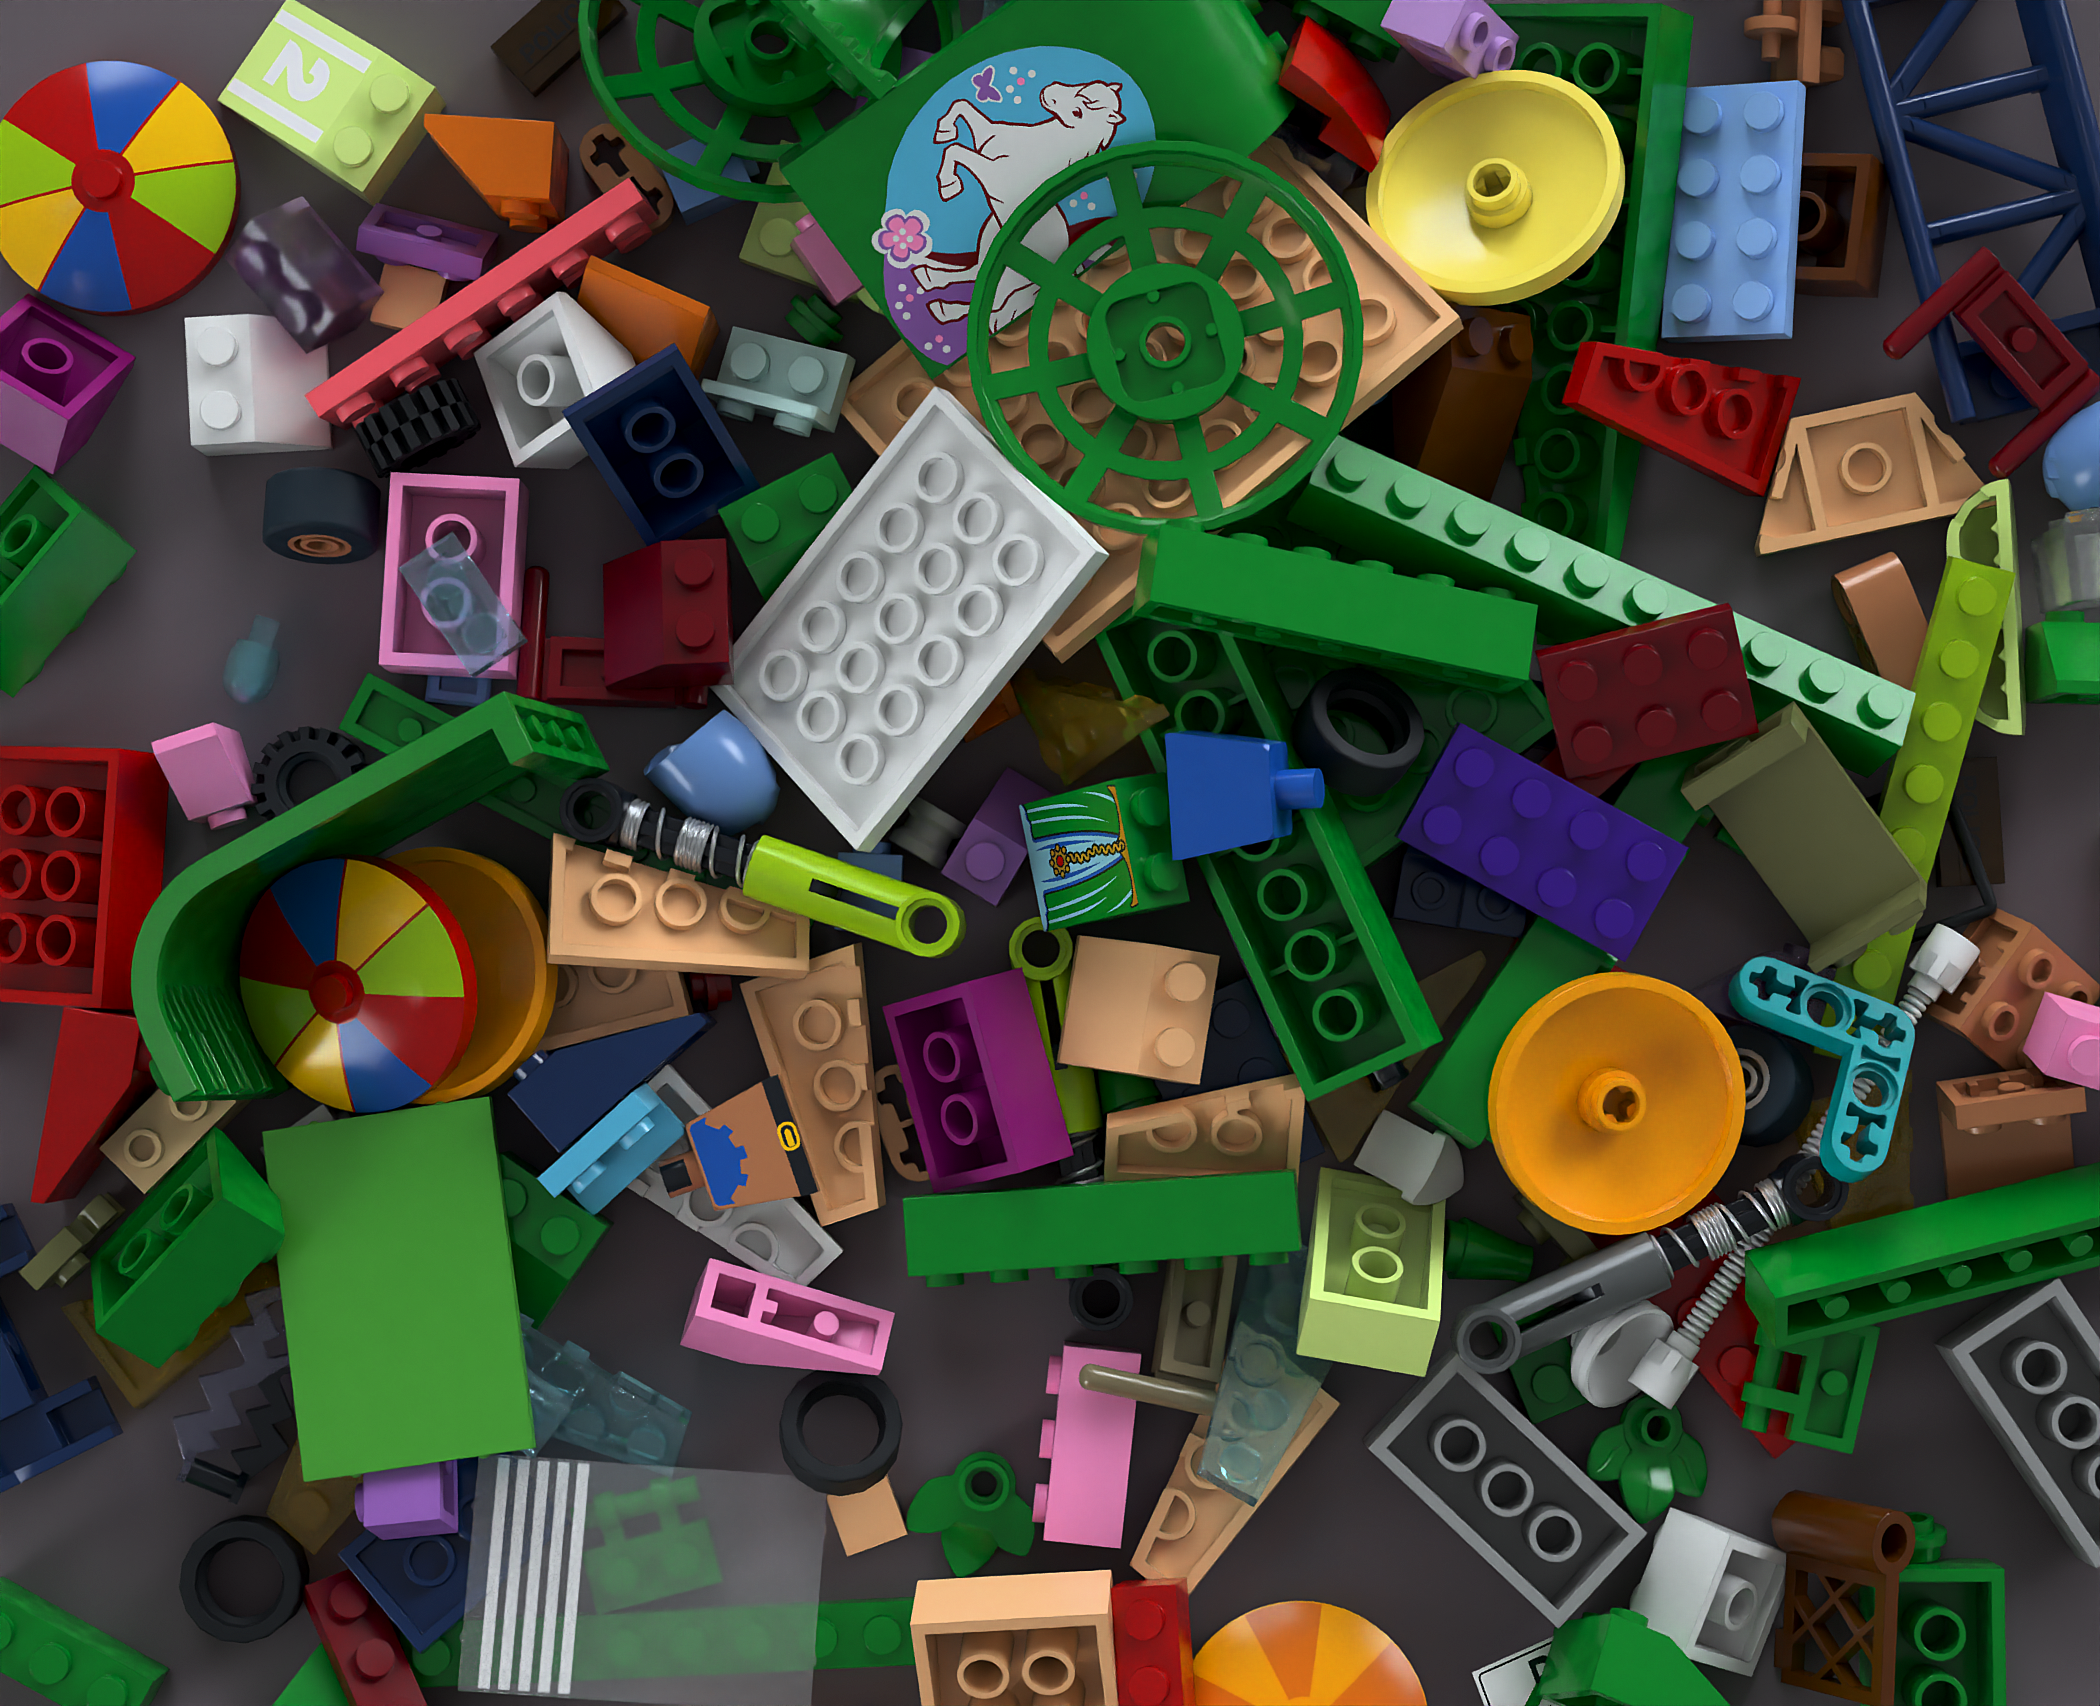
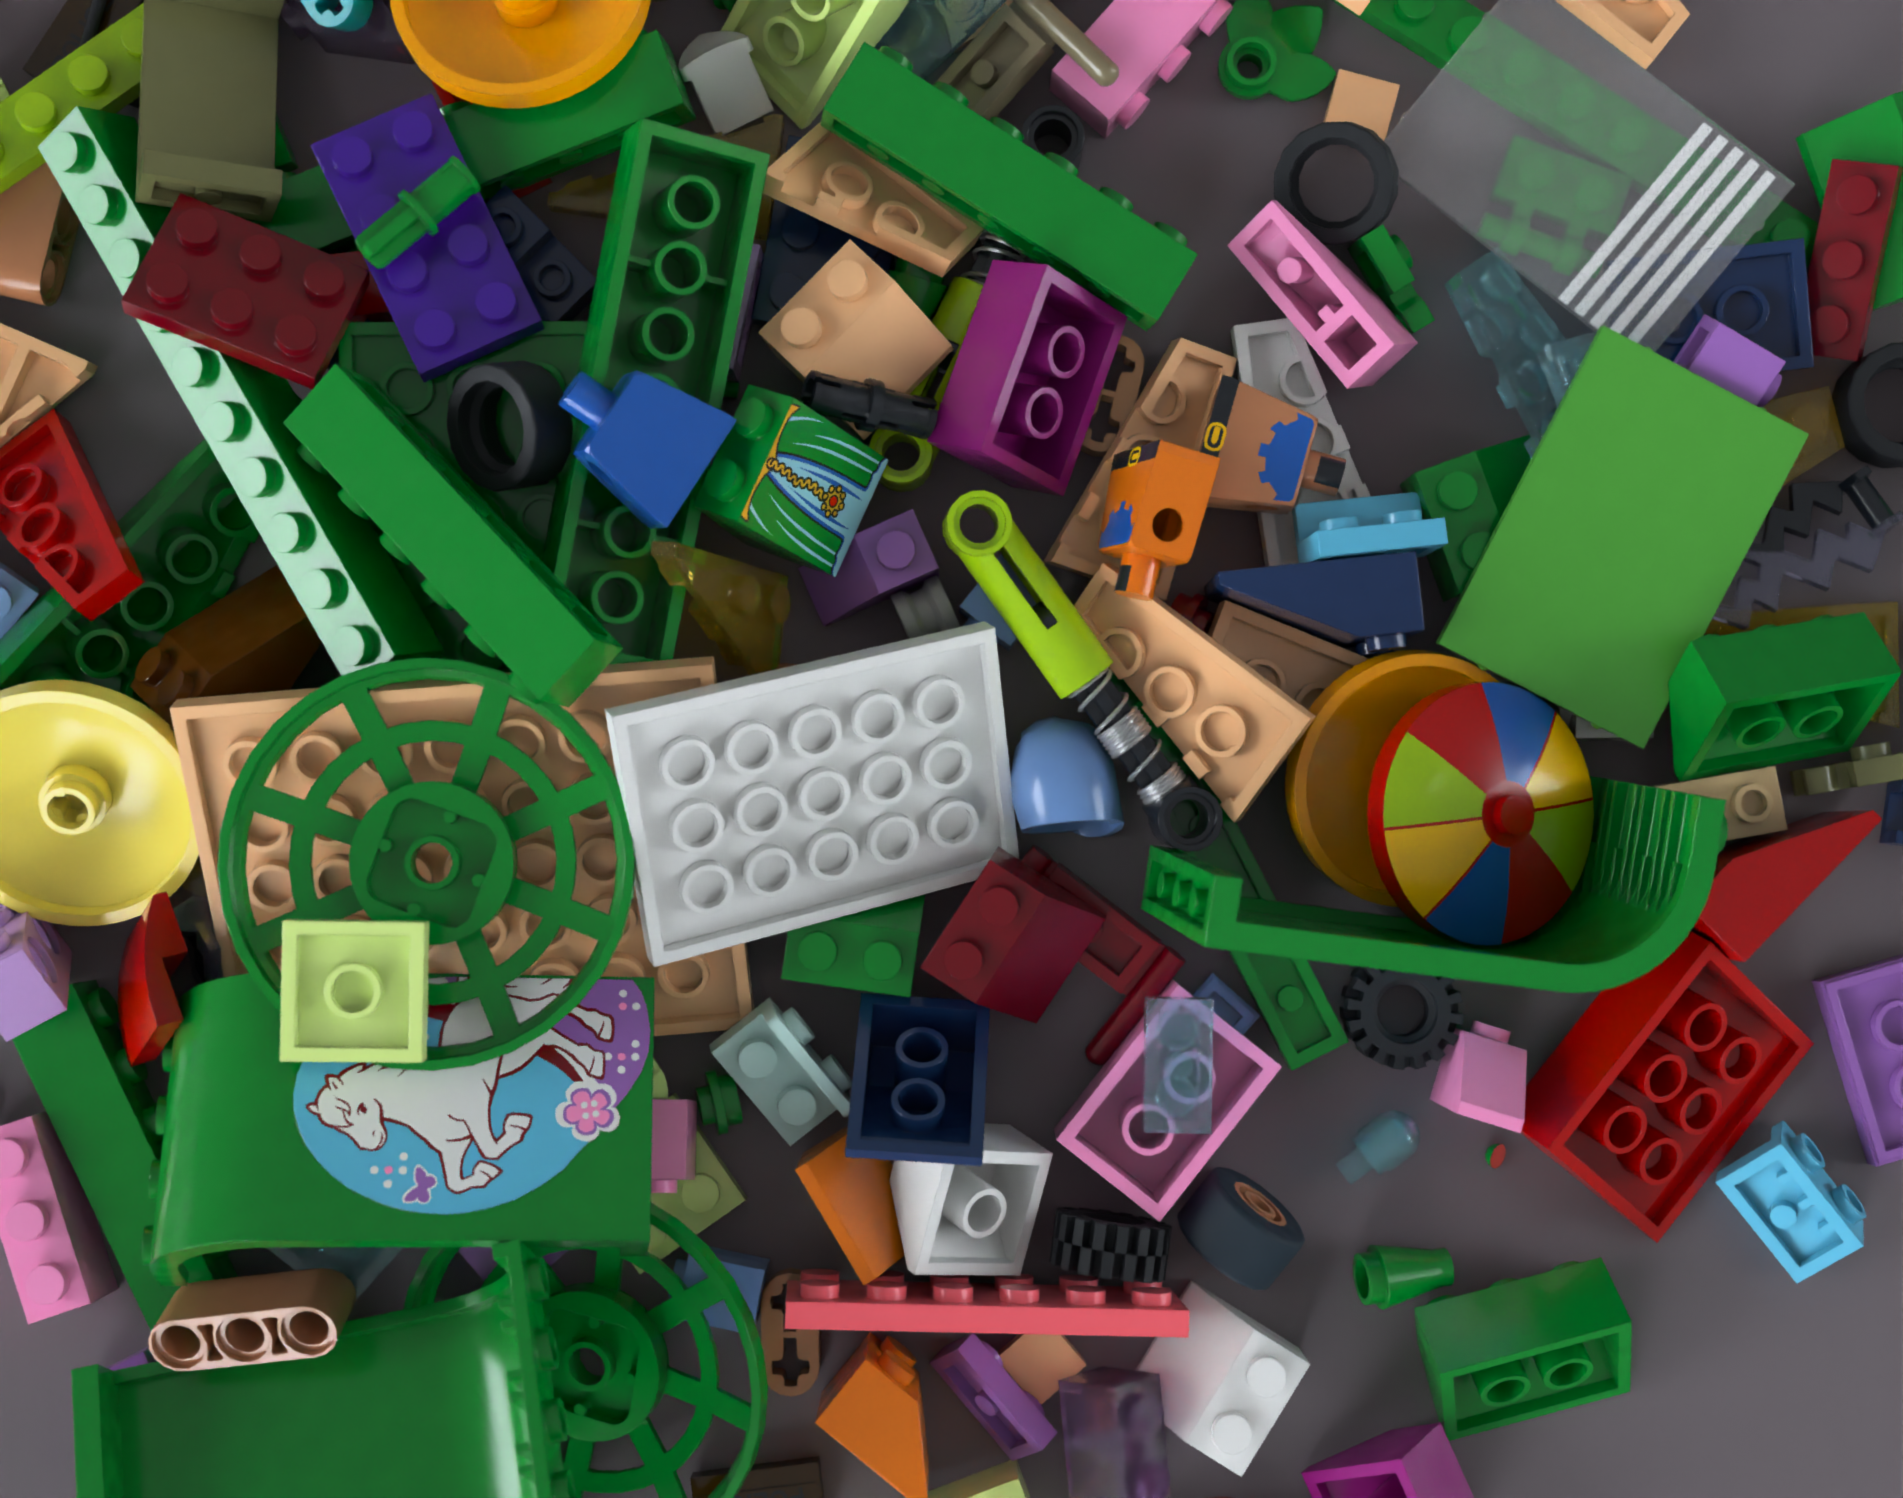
camera: 140 degrees left, 0 degrees up
(153, 723) = (1495, 1155): none -> coral piece
(167, 570) = (1398, 1274): none -> green cone
(751, 1392) = (1386, 268): none -> green plate
(793, 1034) = (1154, 512): none -> orange torso
(1087, 960) = (869, 405): none -> black pin
(1145, 199) = (354, 991): none -> yellowish green plate
(1553, 848) = (417, 213): none -> green axle

